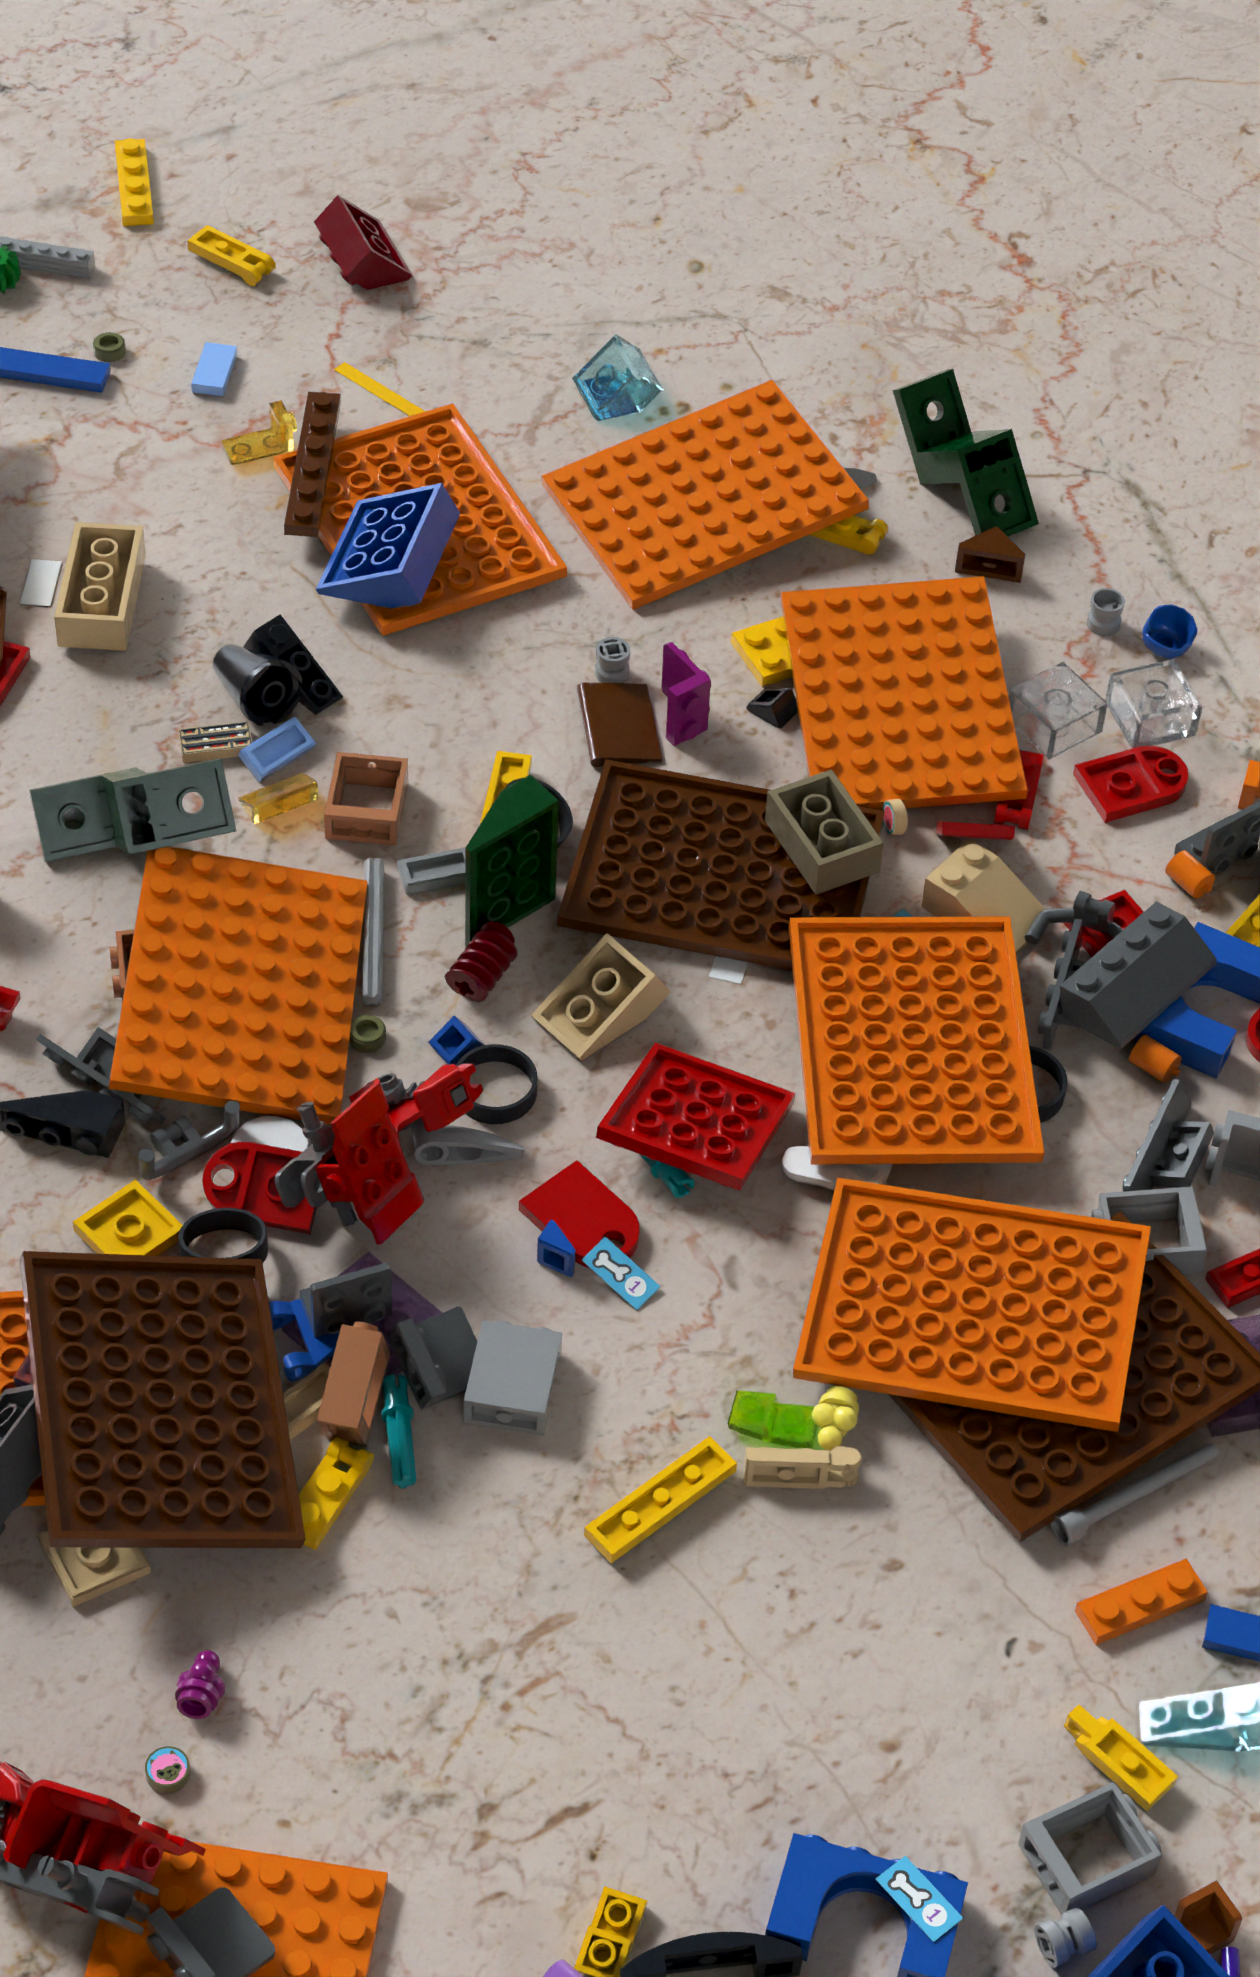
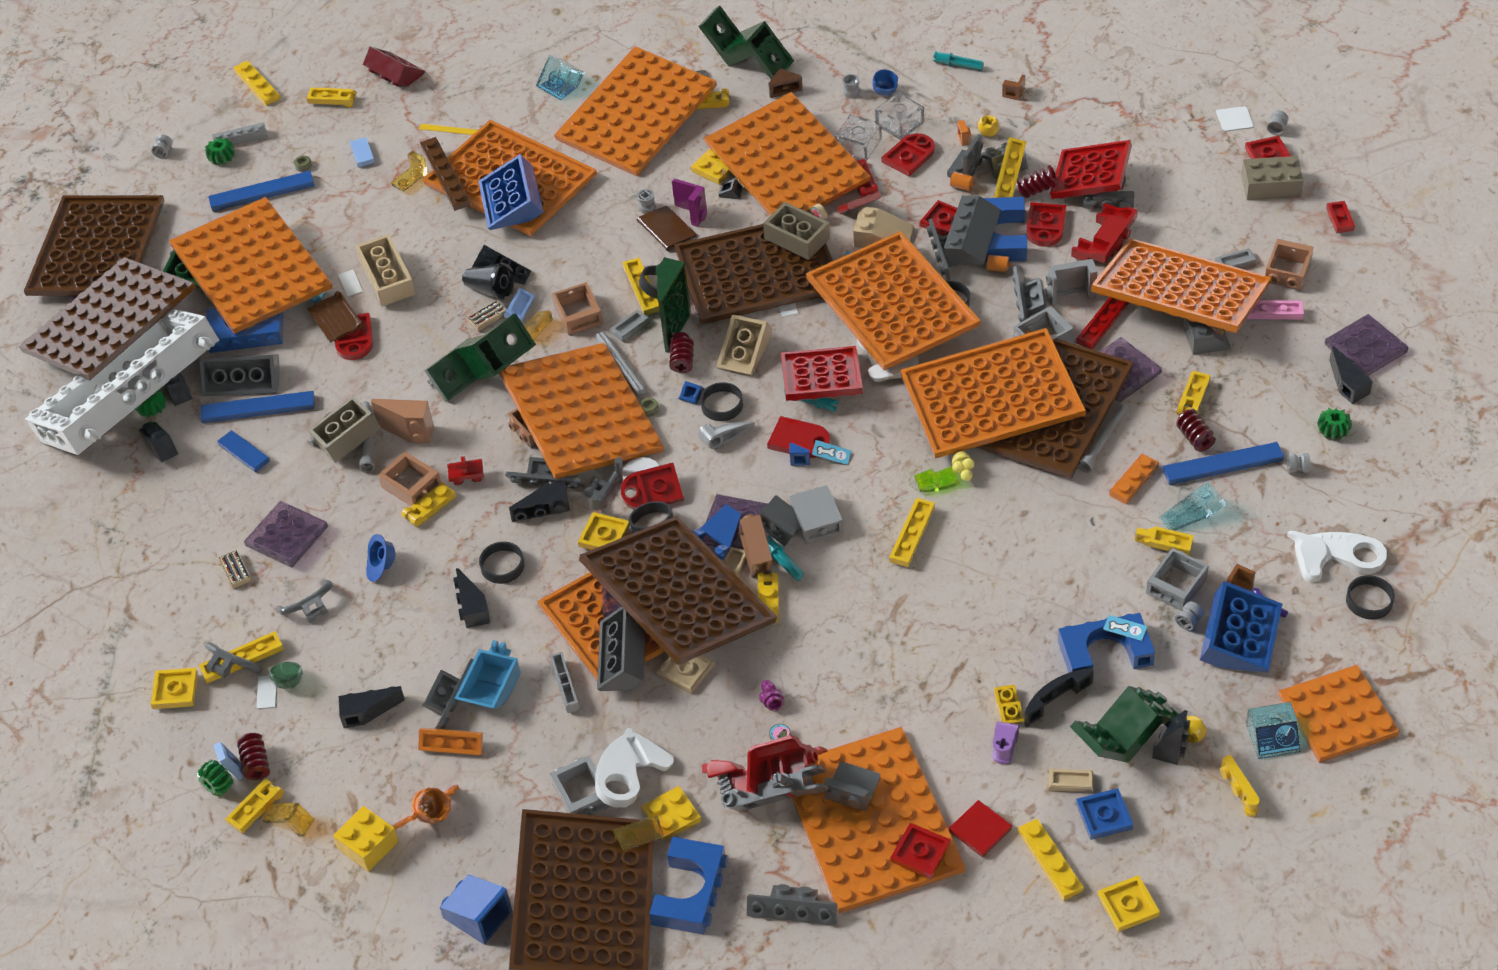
camera: 20 degrees left, 0 degrees up
(348, 1299) = (728, 513): dark grey bracket -> none
(362, 1153) = (690, 451): red piece -> none
(801, 1467) = (962, 492): tan hinge -> none
(1094, 913) = (934, 213): dark grey piece -> none

